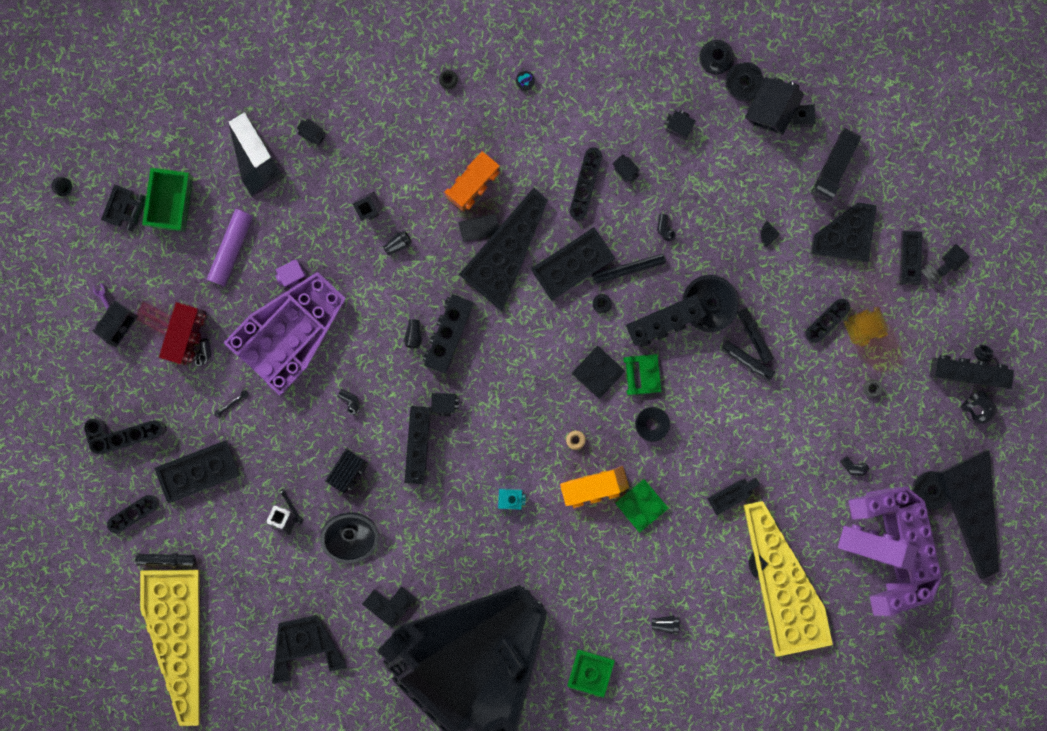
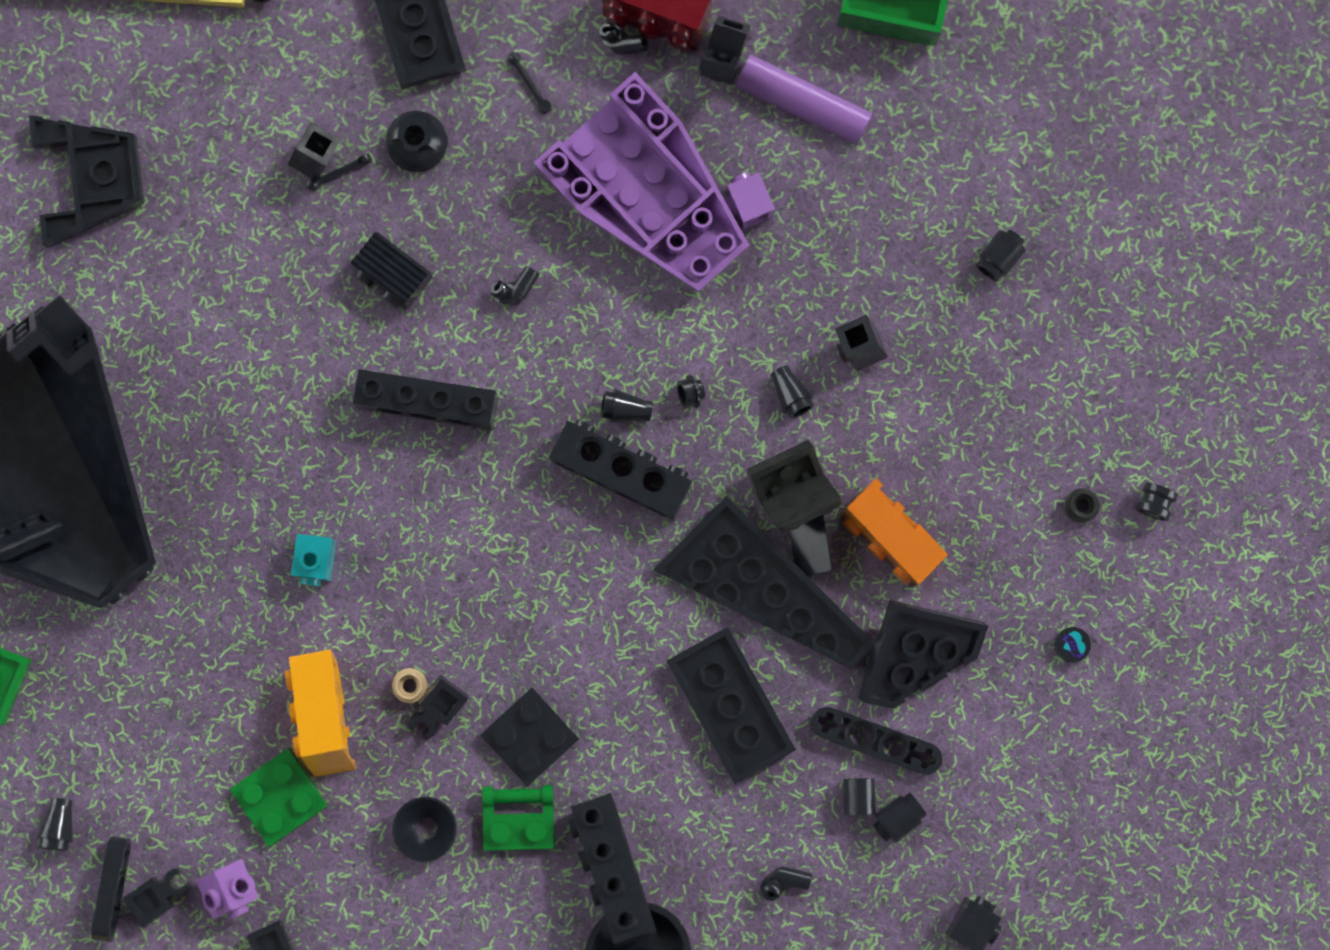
camera: 90 degrees right, 5 degrees down
(205, 294) = (724, 50): none -> black brick
(254, 161) = (957, 153): black wedge -> none
(280, 464) = (421, 156): none -> black piece
(352, 545) = (259, 266): black dish -> none
(389, 610) = (137, 329): black plate -> none
(401, 299) = (690, 392): none -> black plate
(443, 38) = (1156, 501): none -> black wheel
(444, 403) = (495, 453): black brick -> none
(451, 237) = (793, 487): none -> pearl dark grey bracket
(535, 164) = (913, 648): none -> black plate
(584, 421) = (439, 703): none -> black plate
(597, 308) = (654, 765): black plate -> none
(616, 191) = (859, 796): none -> black beam
(628, 268) = (715, 808): black axle -> none
(693, 527) = (228, 890): none -> medium lavender brick
(697, 591) = (111, 889): none -> black beam
(701, 568) = (153, 898): none -> black plate

